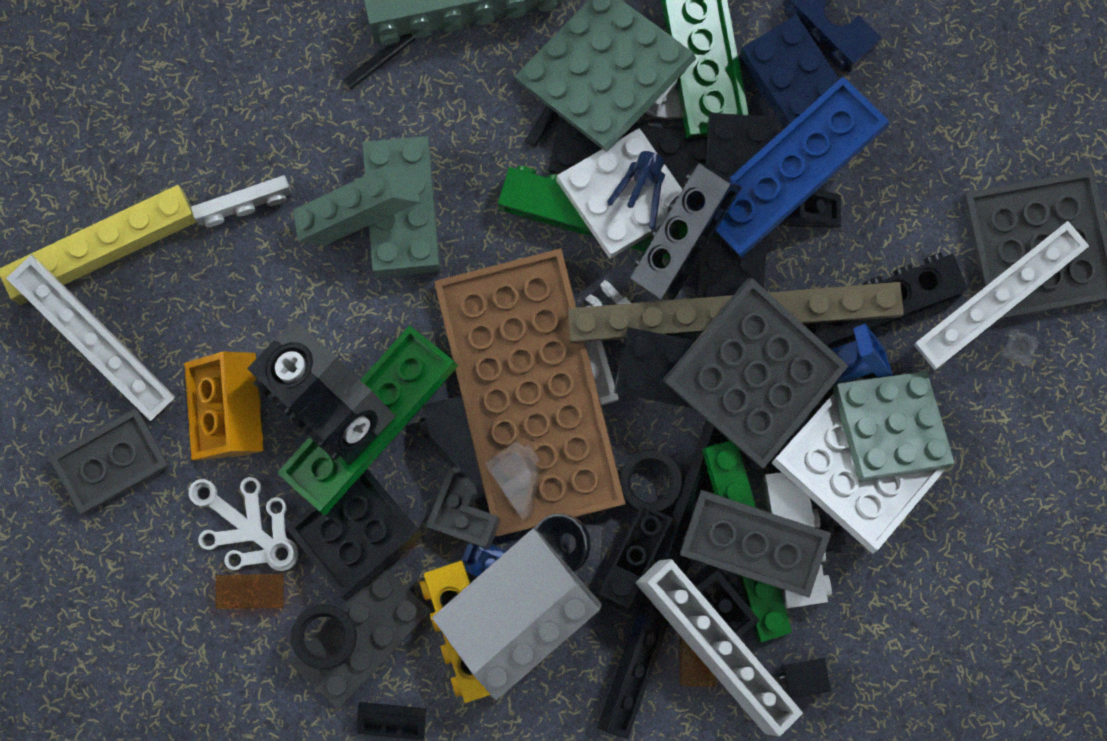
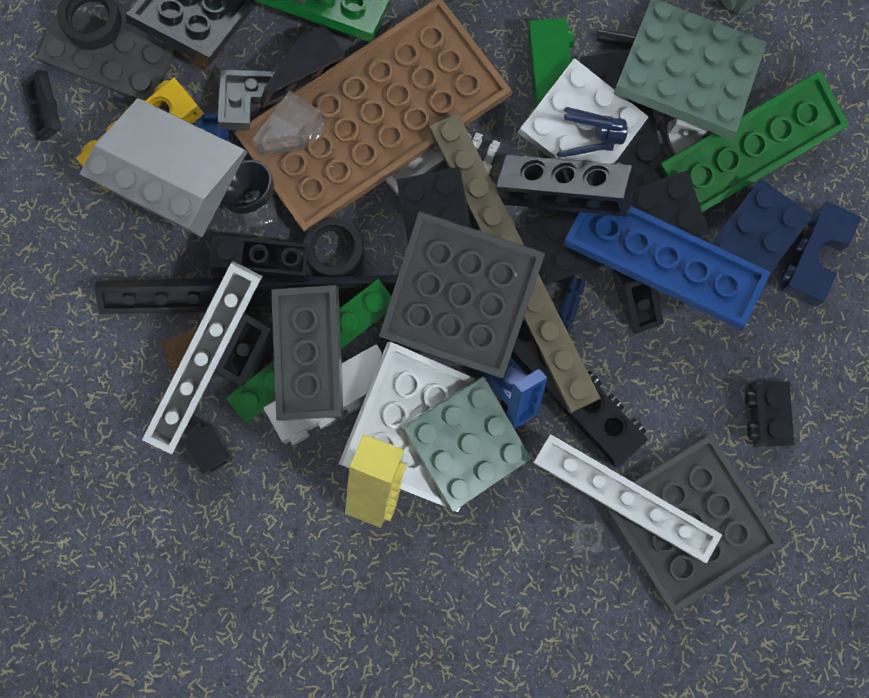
camera: 65 degrees right, 0 degrees up
(788, 274) = (571, 301): none -> dark blue axle
(836, 538) = (343, 427): black plate -> none
(917, 520) = (374, 481): none -> light yellow brick
(965, 130) = (770, 414): none -> black bracket

